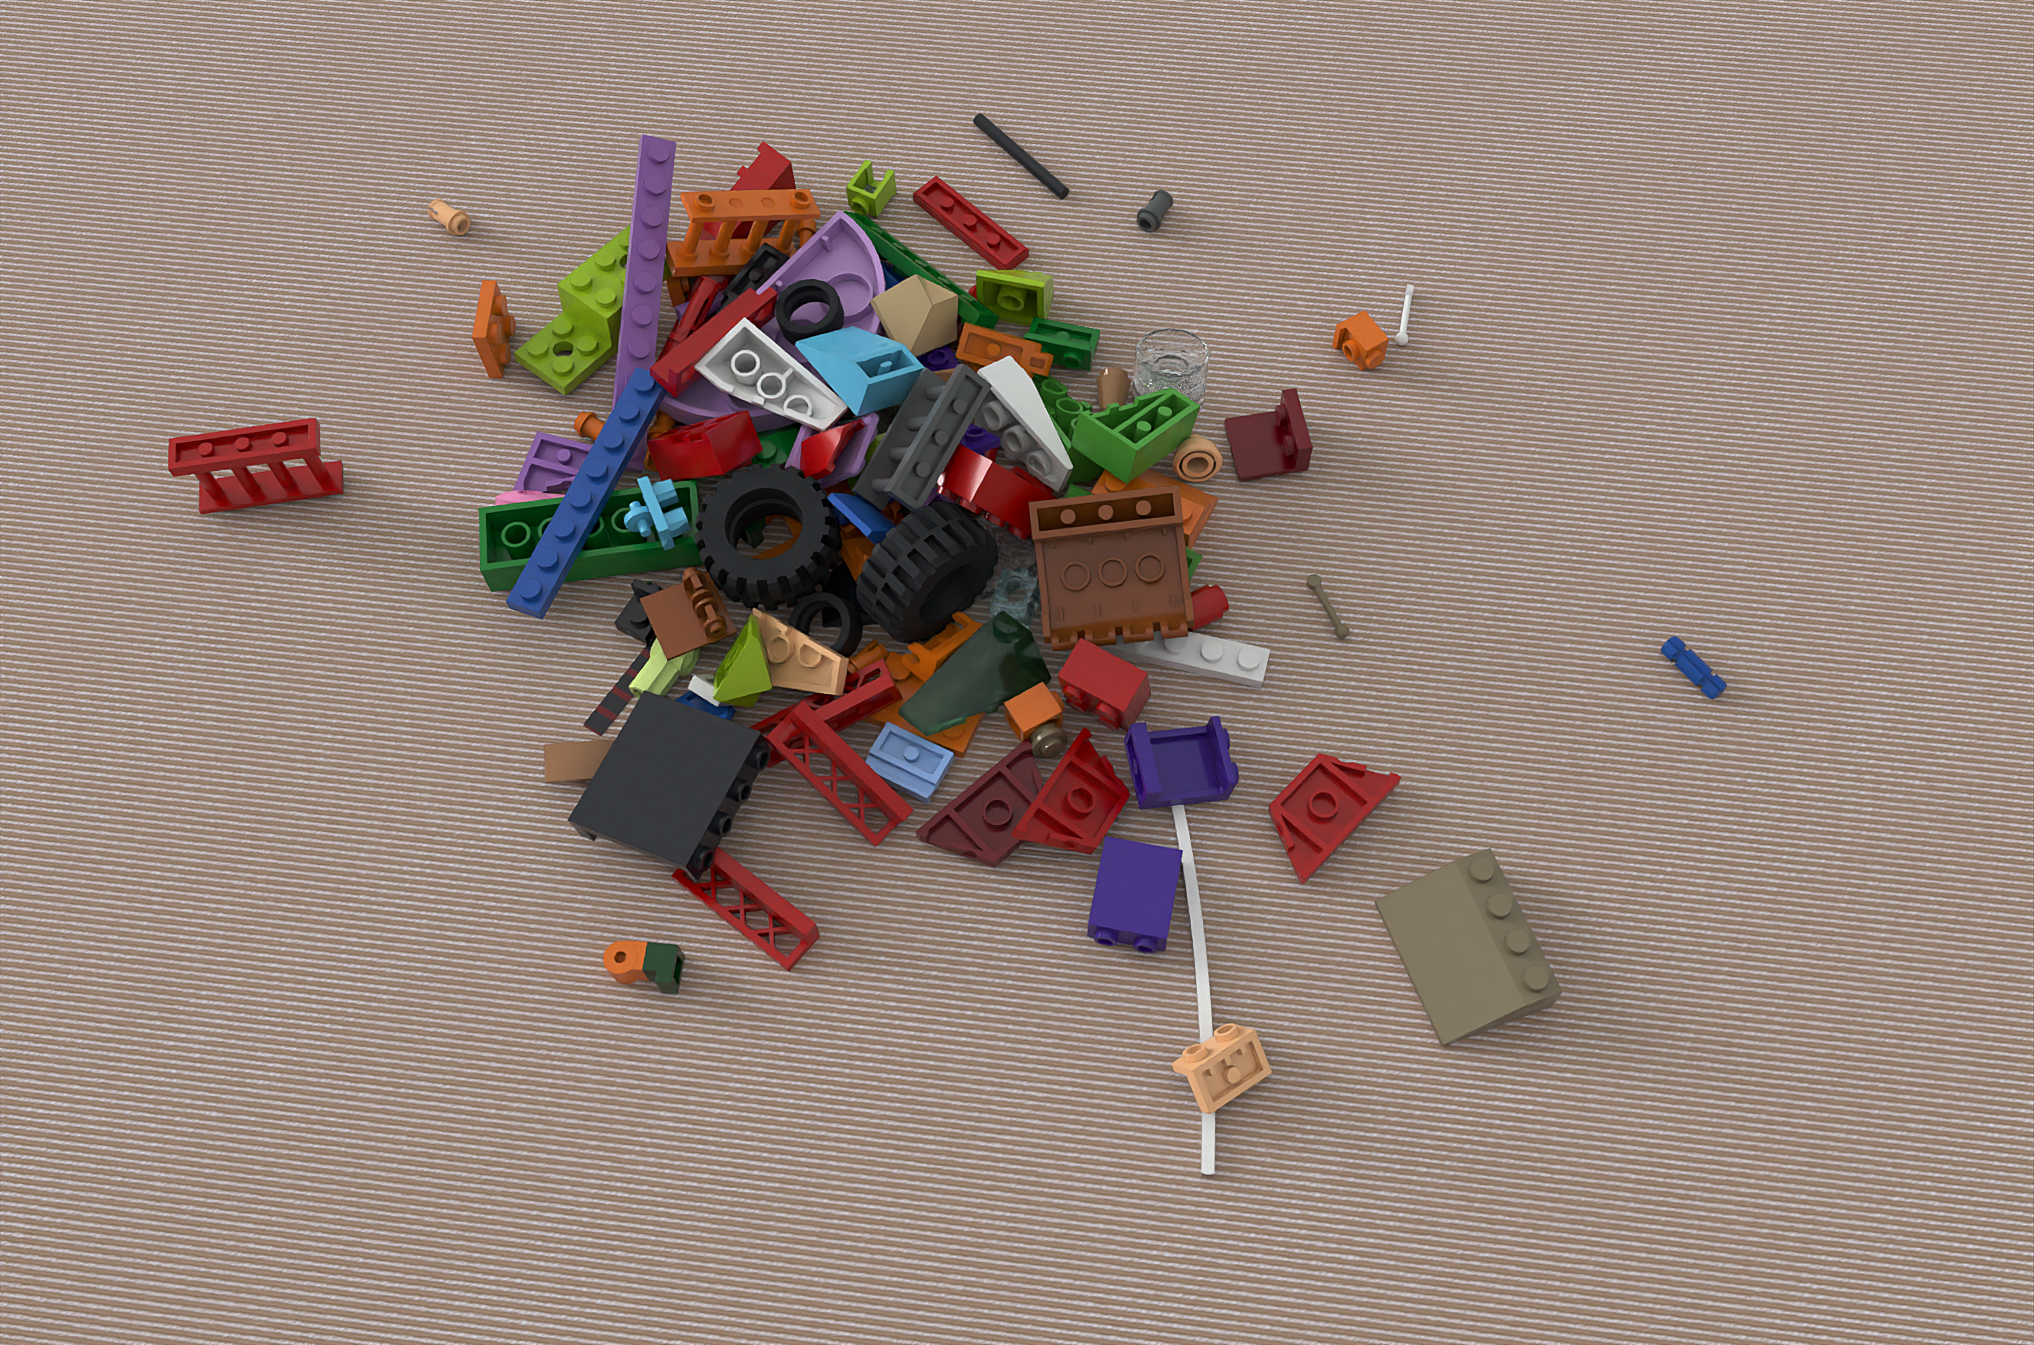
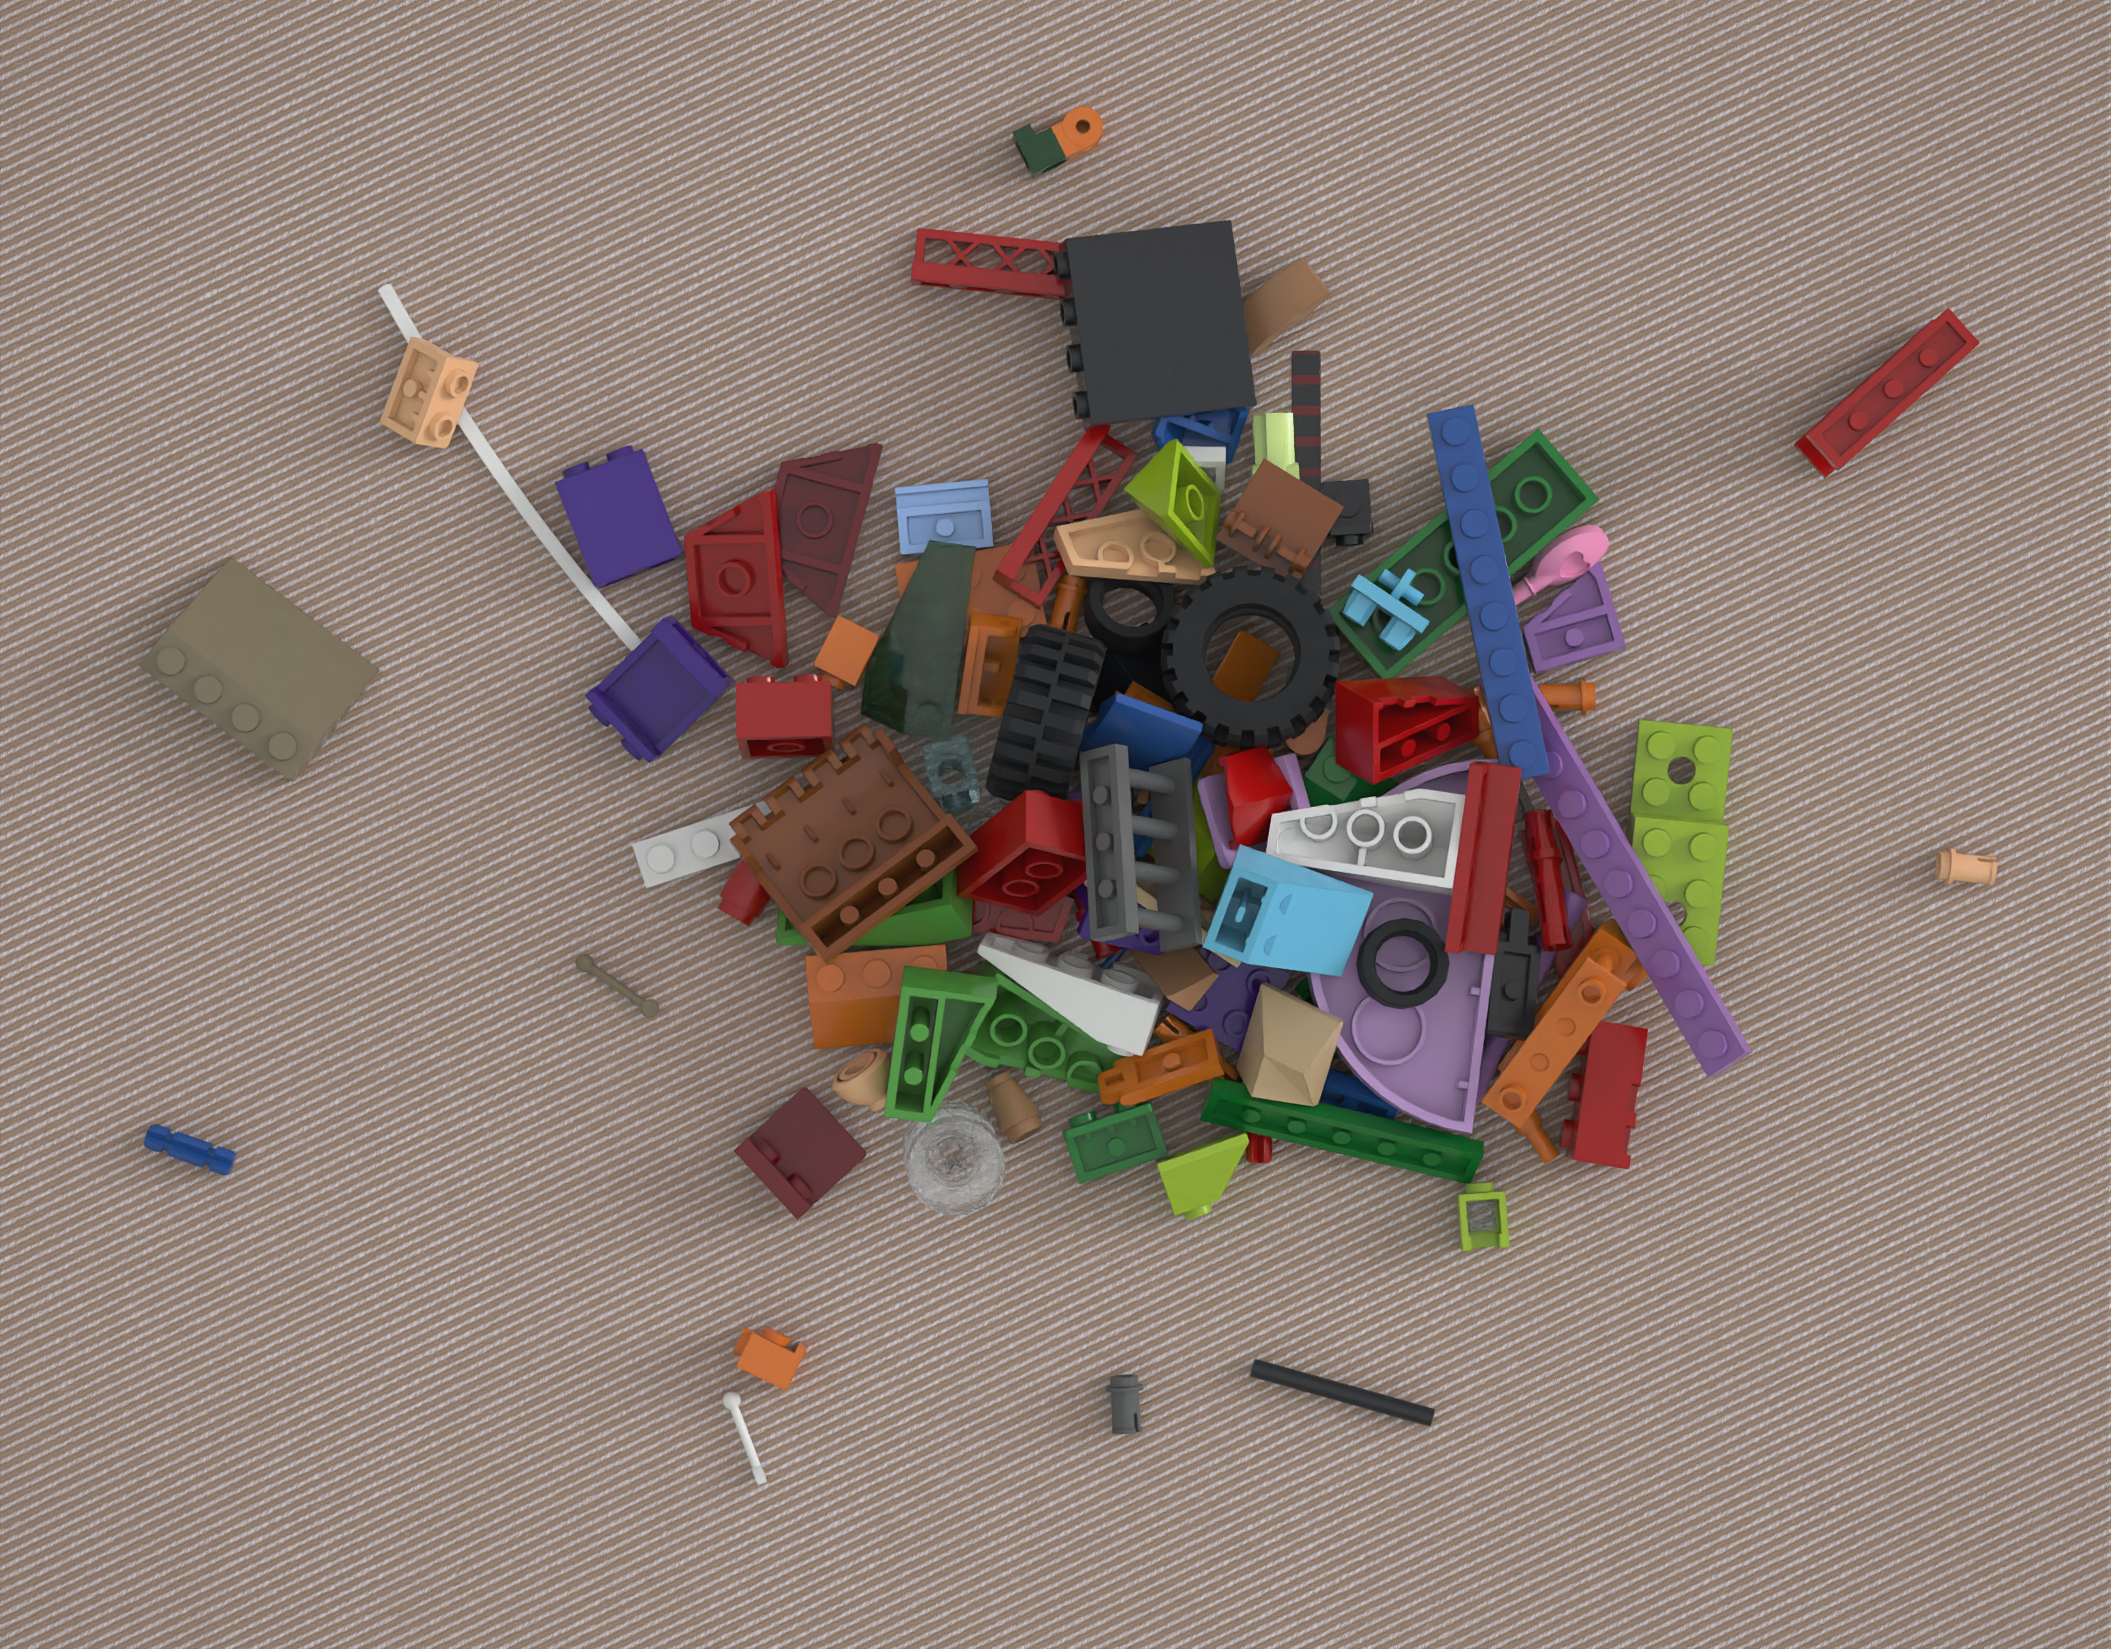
camera: 145 degrees right, 25 degrees up
(493, 329) = (1781, 753): orange plate -> none
(849, 764) = (990, 461): red fence -> none
(970, 225) = (1336, 1251): red tile -> none
(1048, 741) = (812, 631): dark tan plate -> none
(1325, 808) = (483, 737): red wing -> none

